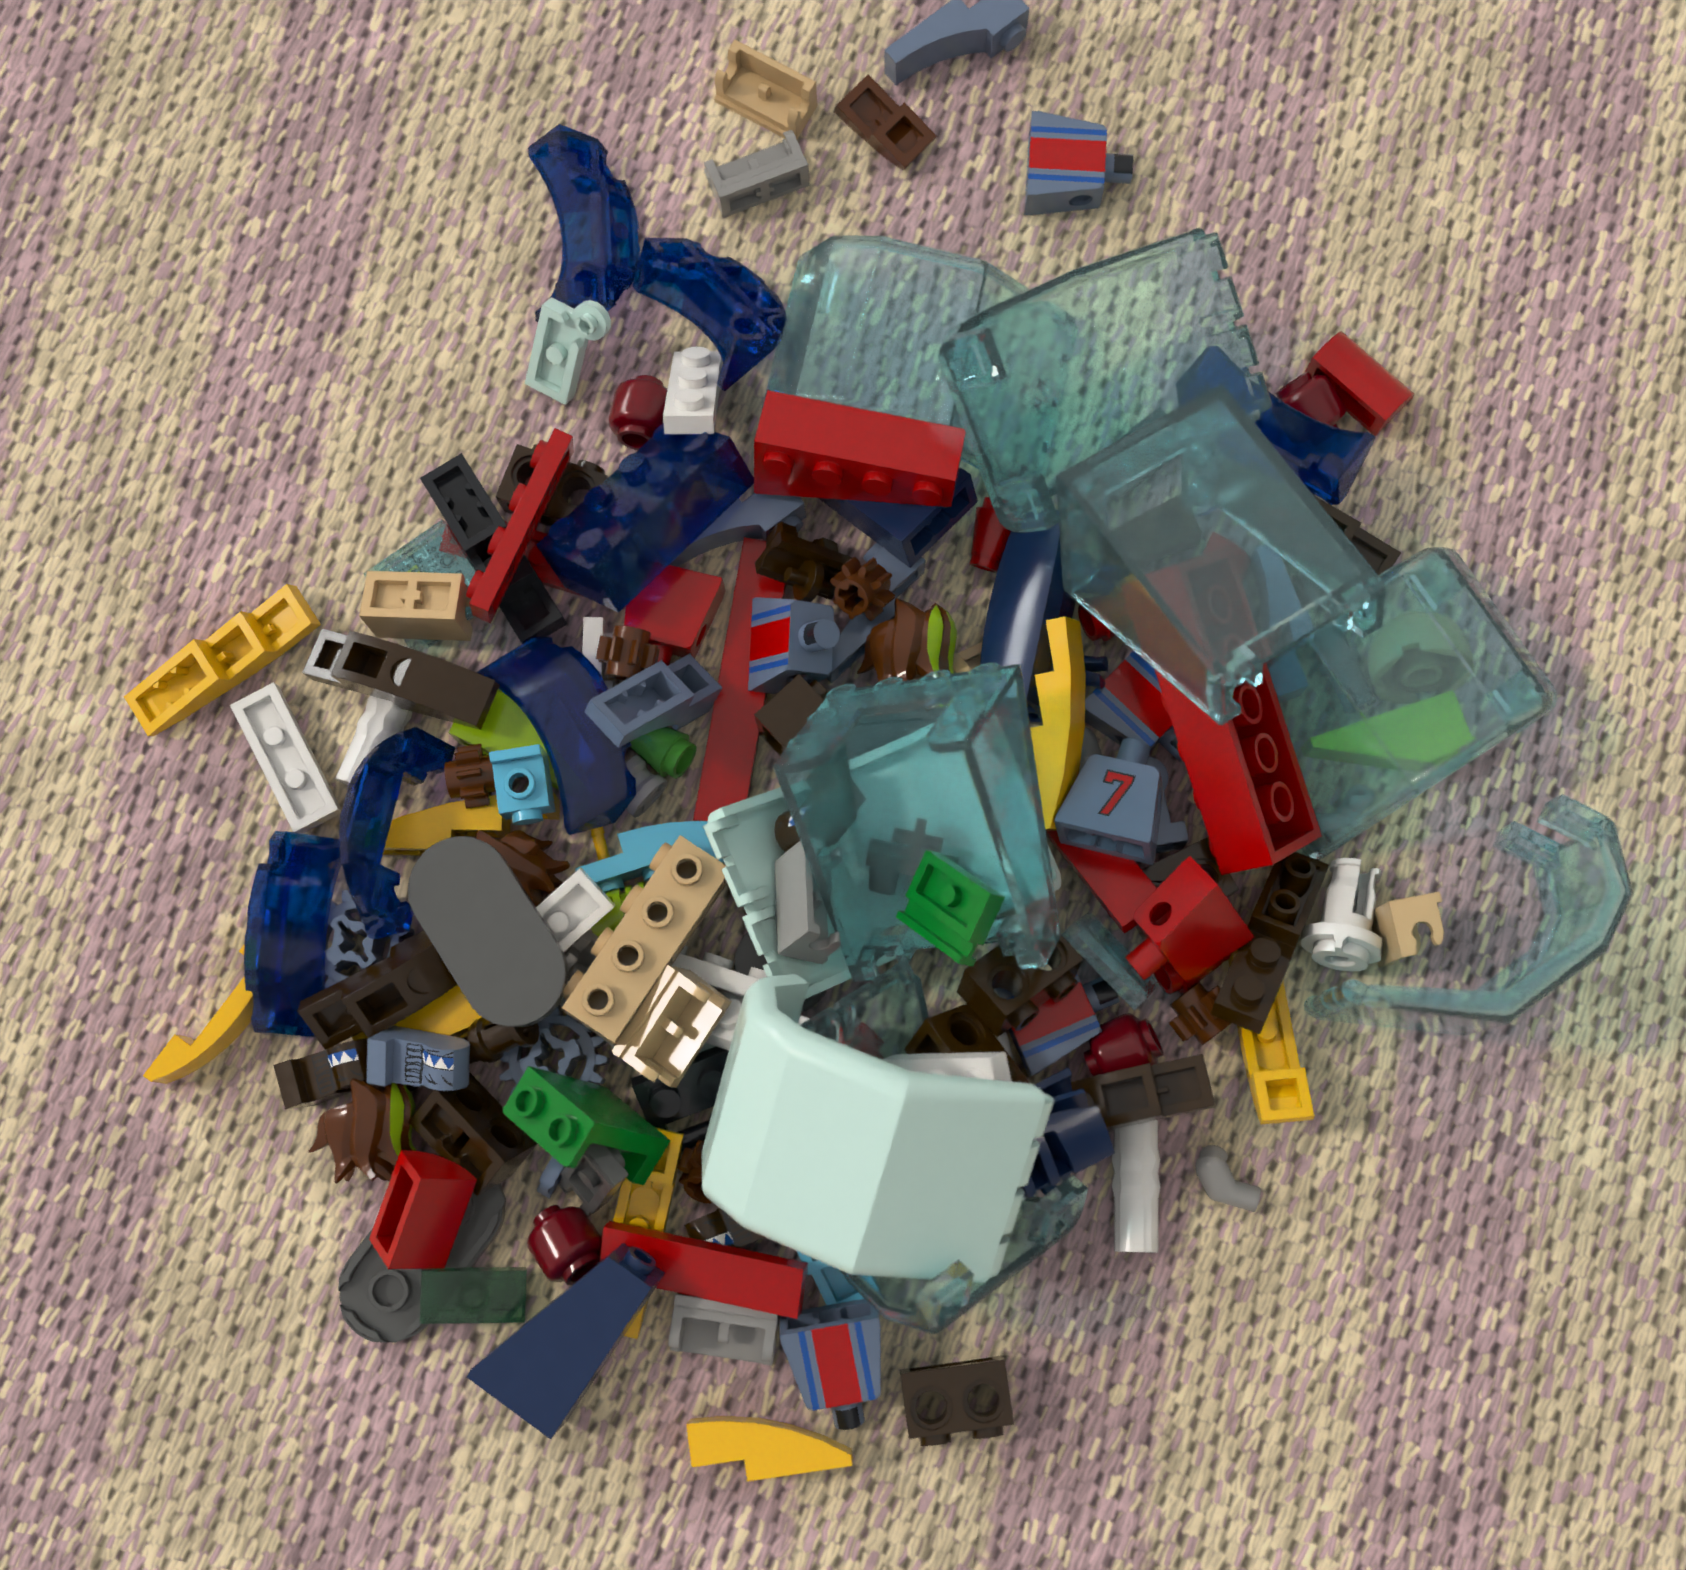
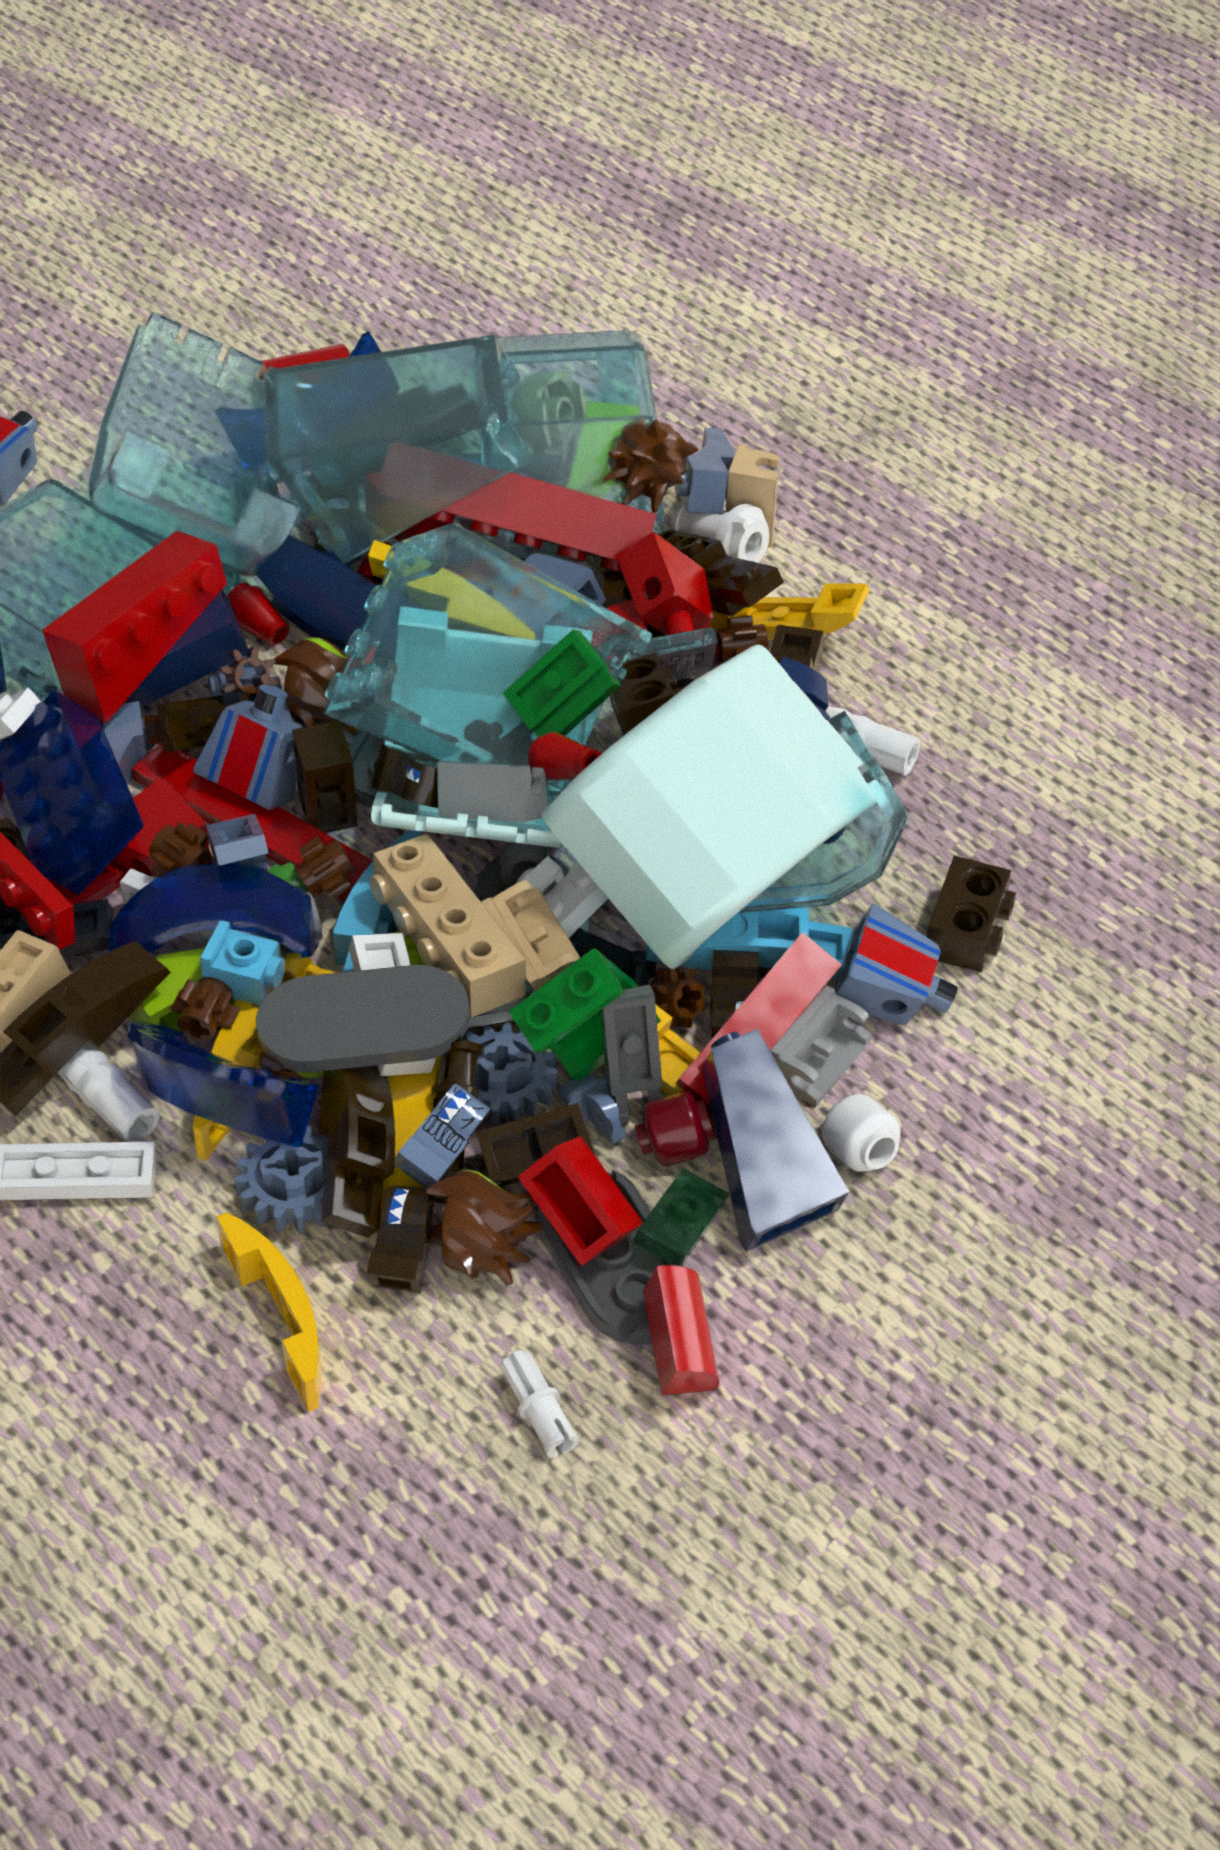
camera: 70 degrees left, 30 degrees down
(236, 1265) = (539, 1403): none -> white axle
(289, 930) = (260, 1211): clear blue windscreen -> none
(344, 1359) = (680, 1331): none -> red brick
(640, 1412) = (861, 1133): none -> white head
(689, 784) = (325, 868): none -> reddish brown gear
(765, 1445) = (937, 1059): yellow slope -> none
(863, 954) = (560, 756): none -> red cone
(1220, 1183) = (883, 692): light grey arm -> none
(1338, 818) = (647, 460): none -> reddish brown hair
(1390, 871) = (707, 474): none -> sand blue slope
(1582, 899) = (802, 397): clear light blue windscreen -> none

